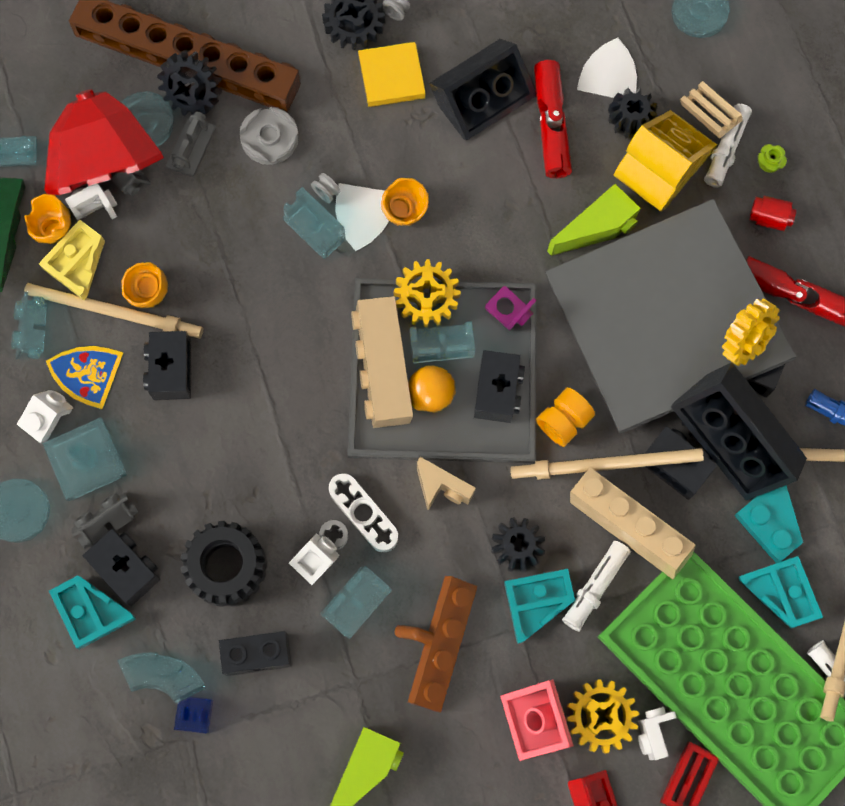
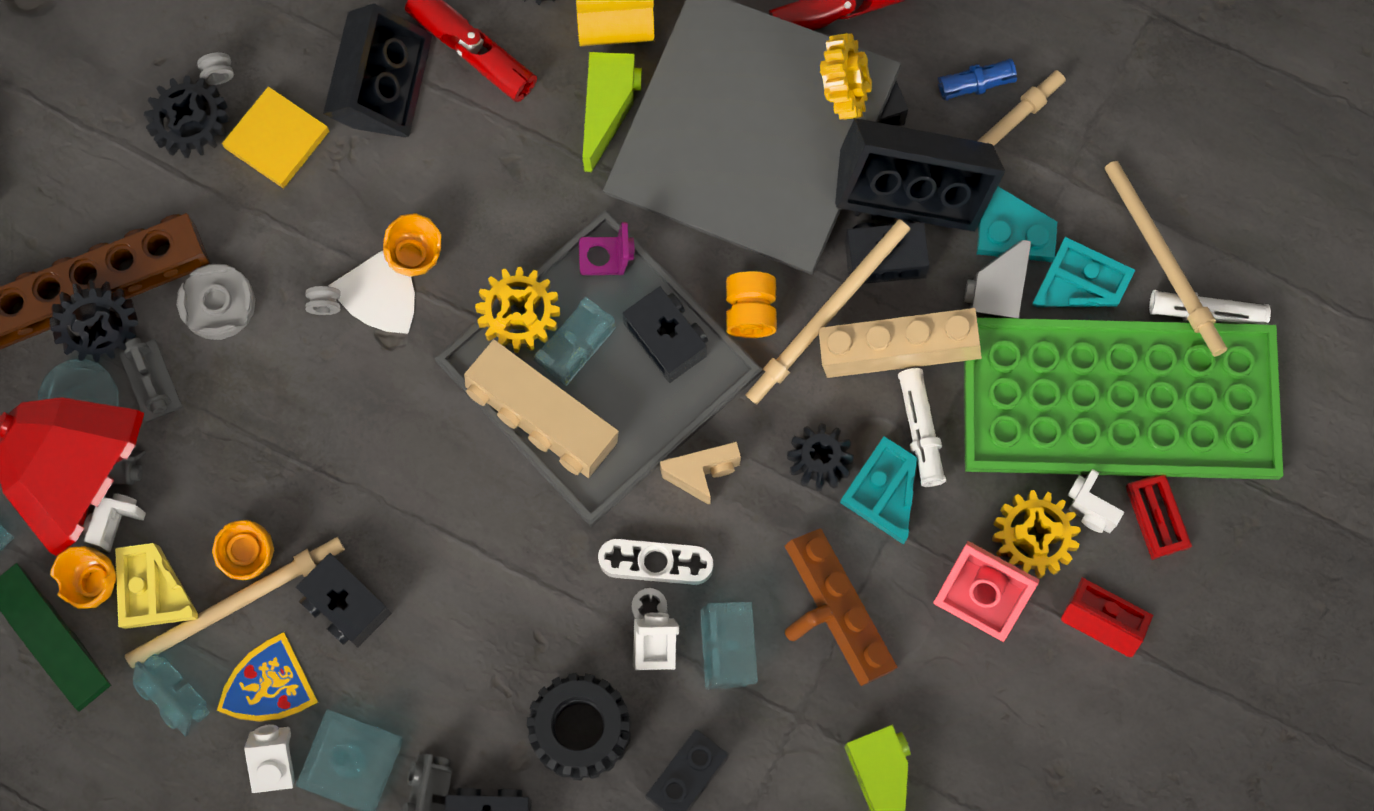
camera: 40 degrees left, 0 degrees up
(314, 223) = (345, 343): clear light blue hinge -> none
(431, 389) = (607, 391): light orange hair -> none
(728, 545) = (1000, 284): none -> light grey slope

